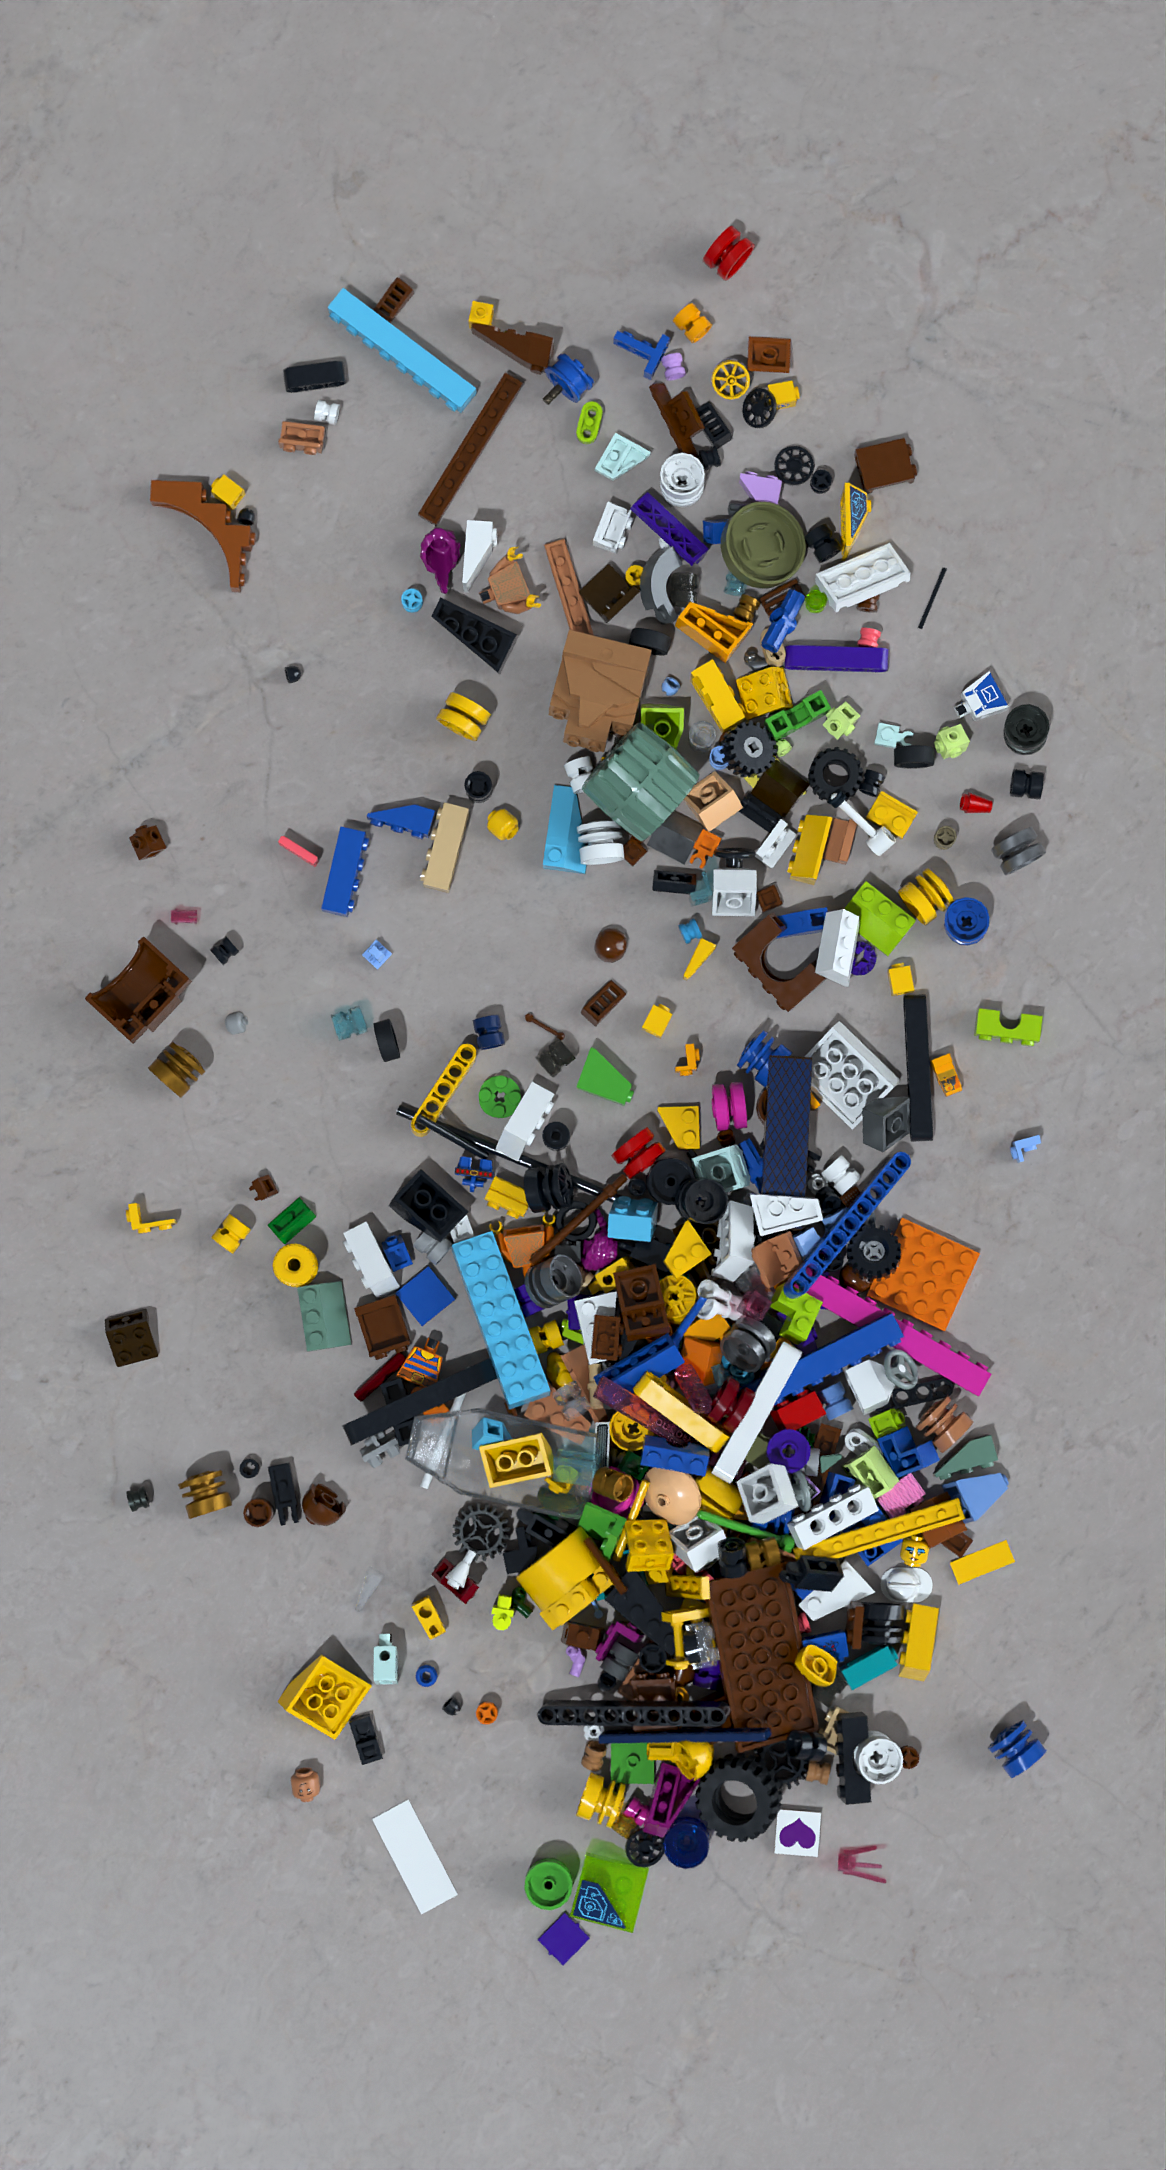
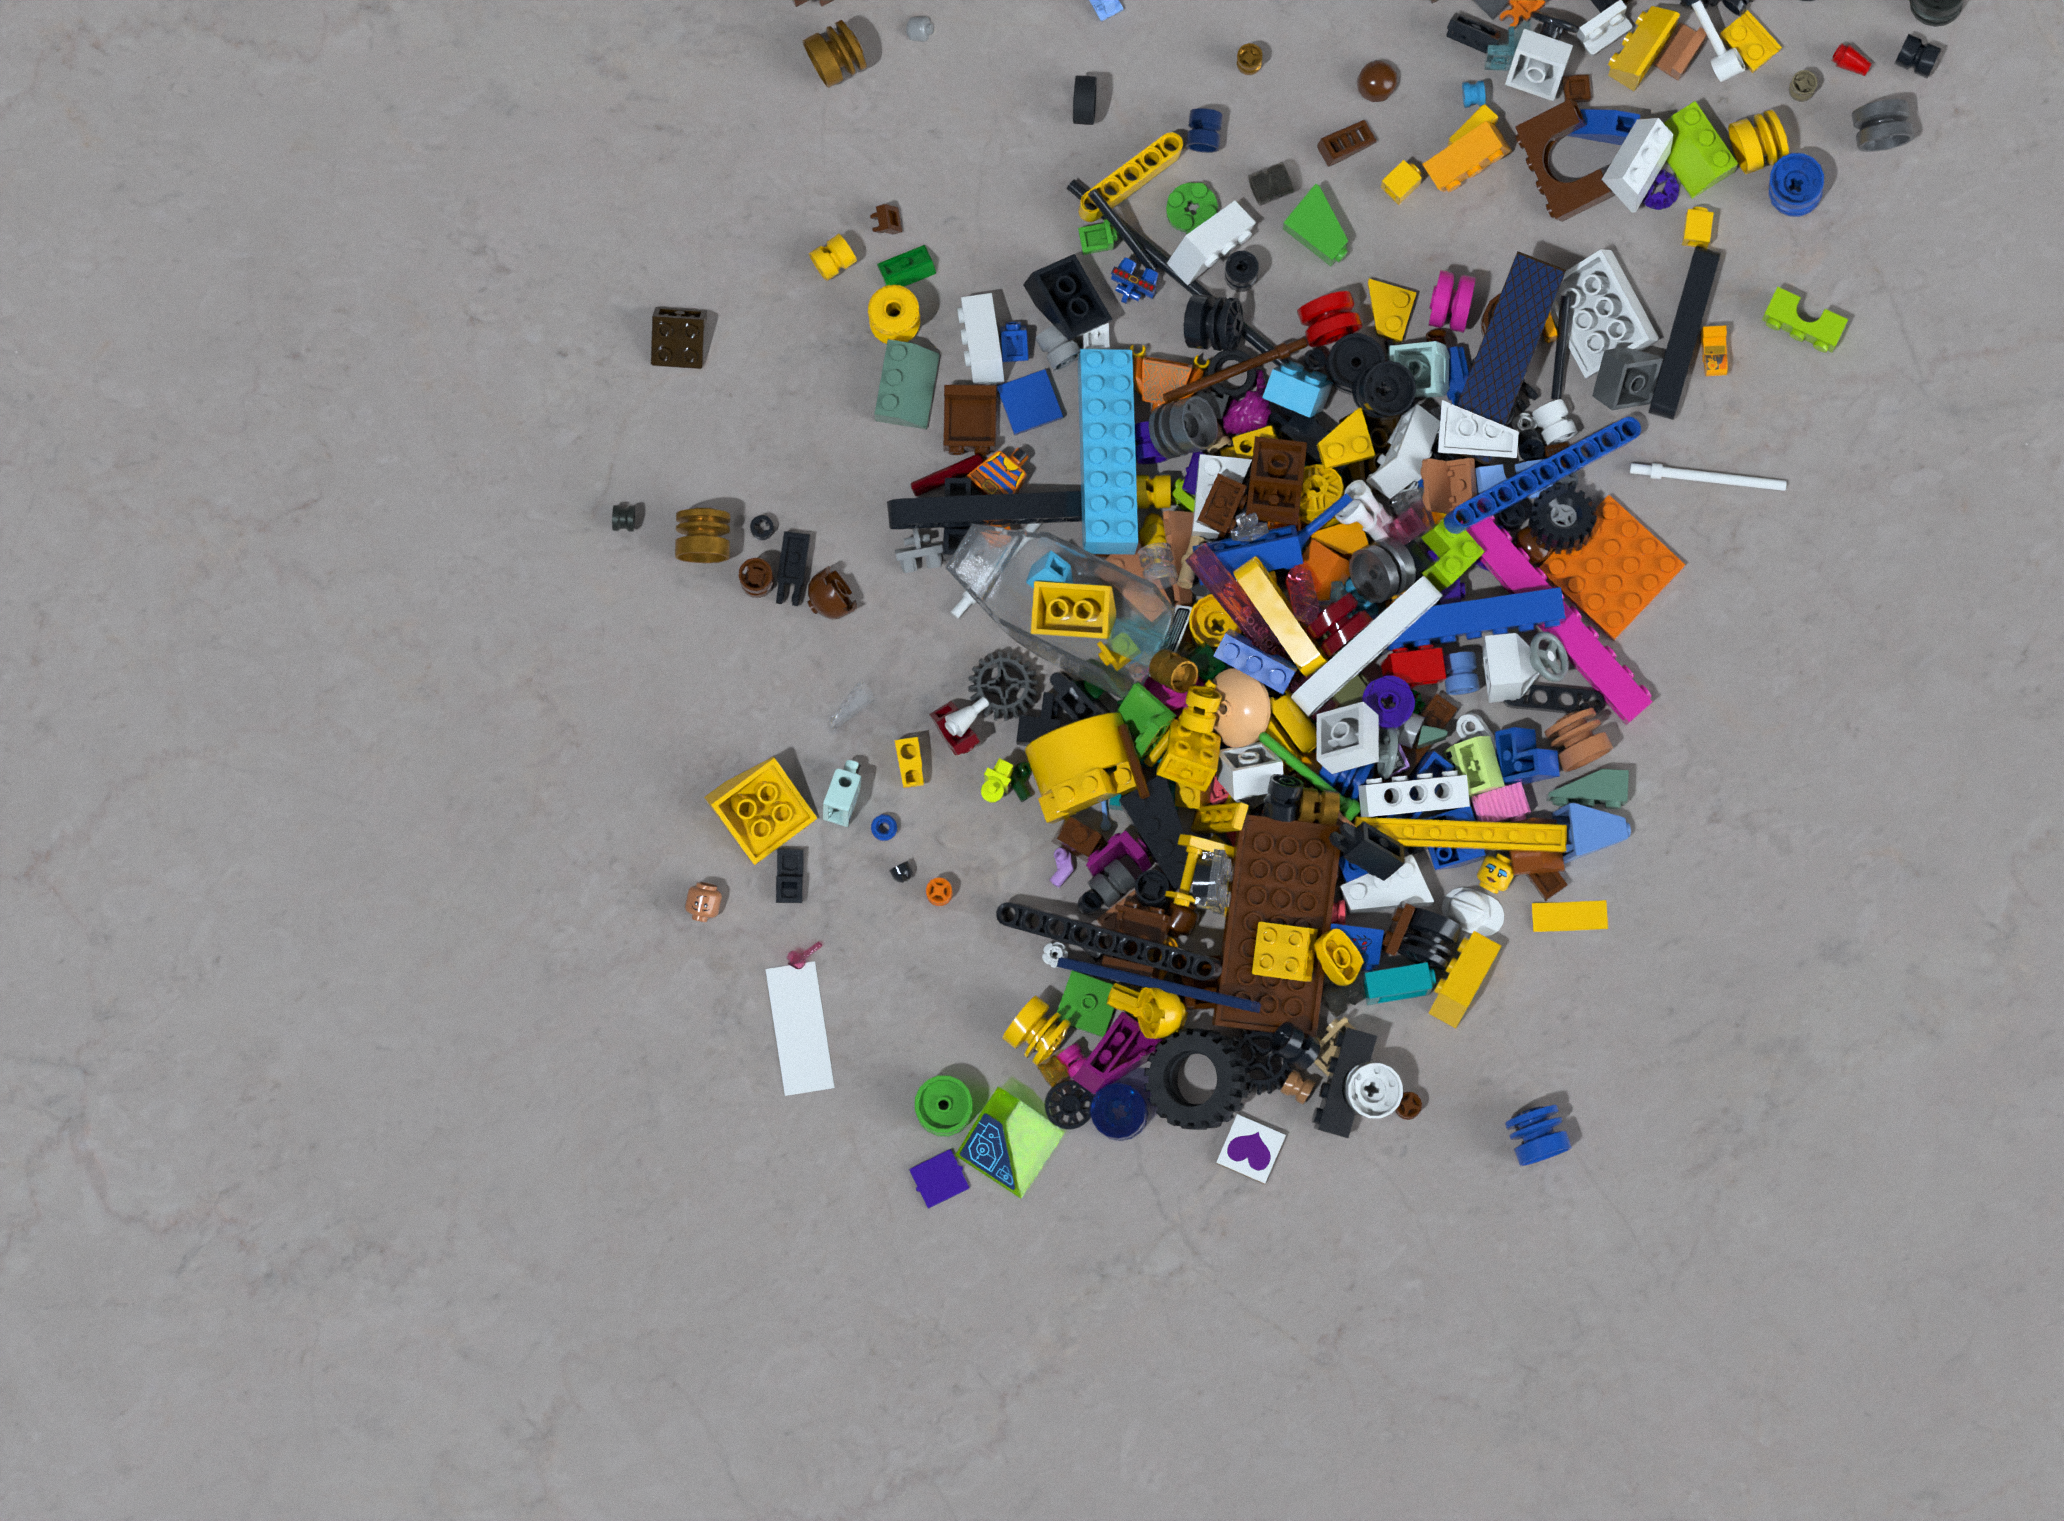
camera: 20 degrees right, 5 degrees down
(134, 1216) = (729, 201): yellow bracket -> none
(349, 1023) = (1048, 68): clear light blue wheel -> none
(396, 1804) = (799, 960): none -> clear pink hand
(433, 1147) = (1097, 238): none -> bright green bracket
(507, 960) = (1250, 54): none -> pearl gold wheel
(507, 1196) = (1162, 321): yellow brick -> none
(529, 1018) = (1256, 133): reddish brown hinge -> none
(593, 1758) = (1045, 980): medium nougat wheel -> none
(633, 1350) = (1248, 528): none -> clear tile
(644, 1508) = (1200, 711): none -> yellow wheel
(692, 1056) = (1428, 234): light orange bracket -> none
(702, 984) = (1467, 156): none -> light orange wedge
(708, 1678) = (1209, 932): dark purple wheel -> none
(757, 1056) = (1501, 253): blue wheel -> none
(774, 1677) = (1284, 951): none -> yellow bracket
(826, 1112) = (1561, 344): none -> black bar
(848, 1863) = (1298, 1200): clear pink plant -> none
(887, 1422) = (1513, 716): lime bracket -> none
(933, 1185) = (1657, 471): none -> white bar
(1028, 1145) = (1781, 458): light blue bracket -> none

